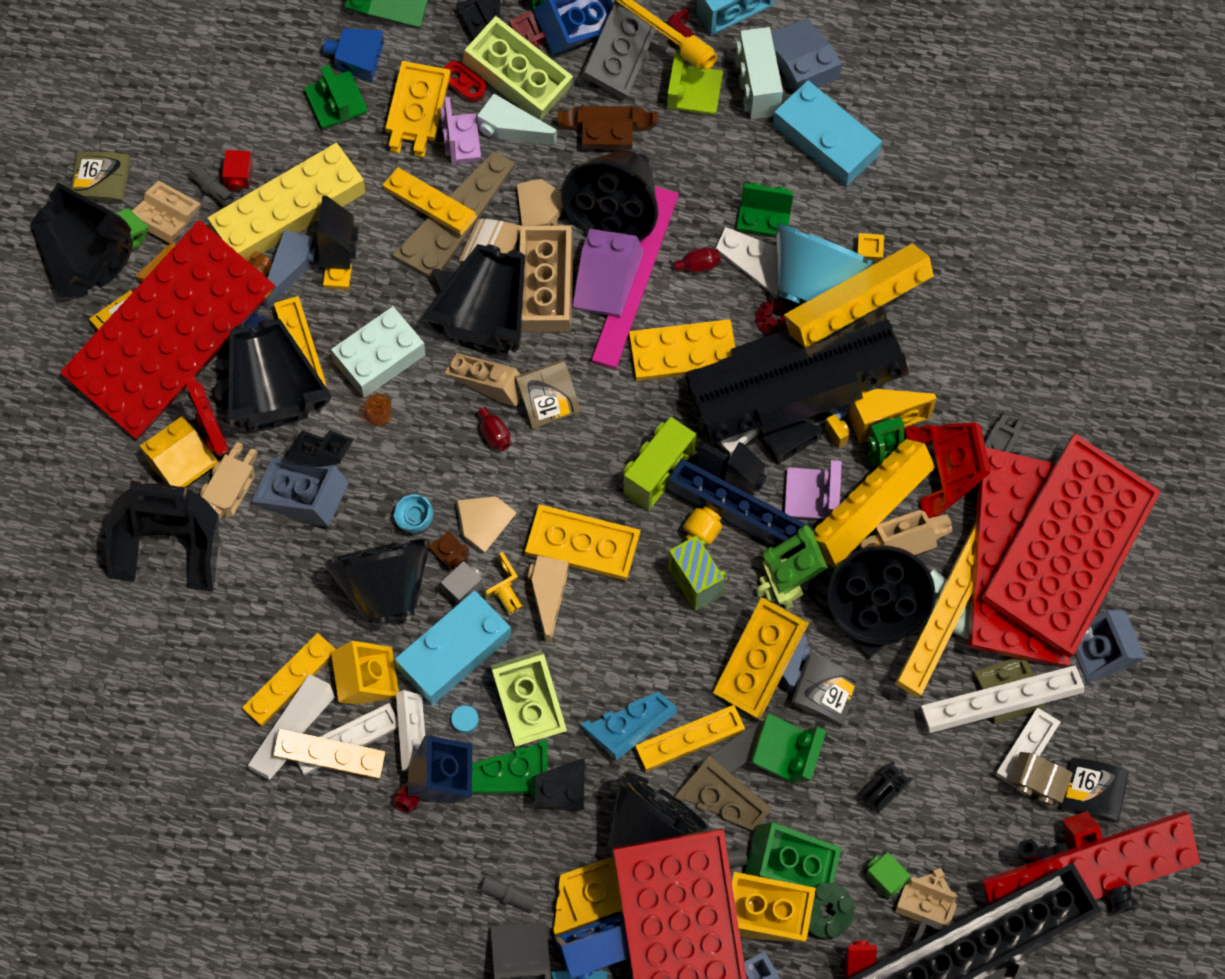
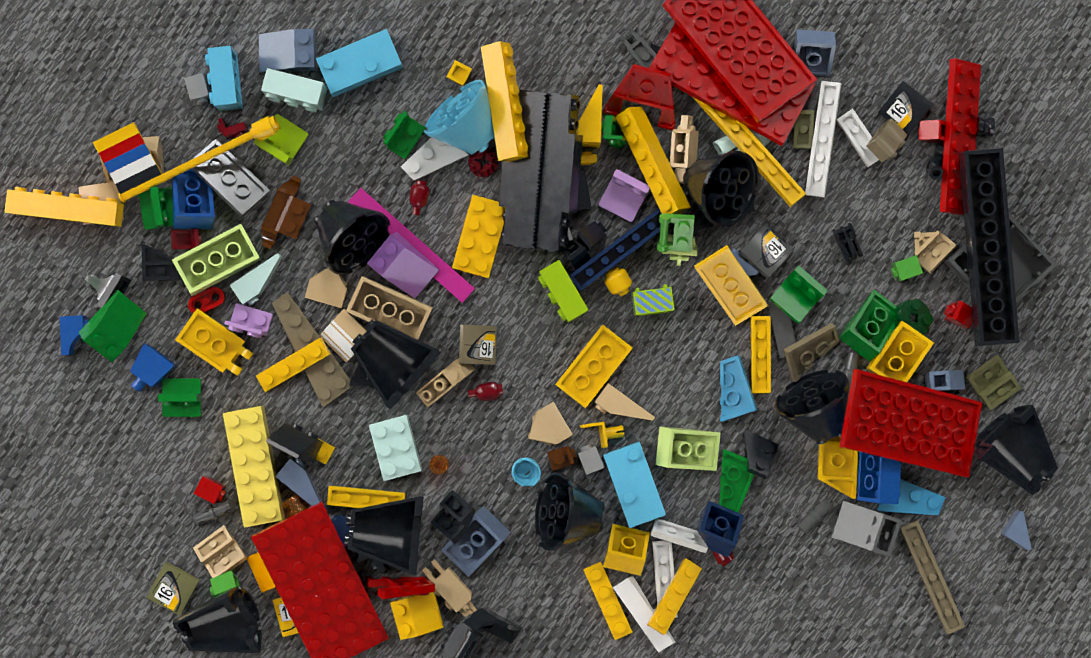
camera: 65 degrees left, 20 degrees up
(465, 719) = (684, 496): medium azure tile -> none

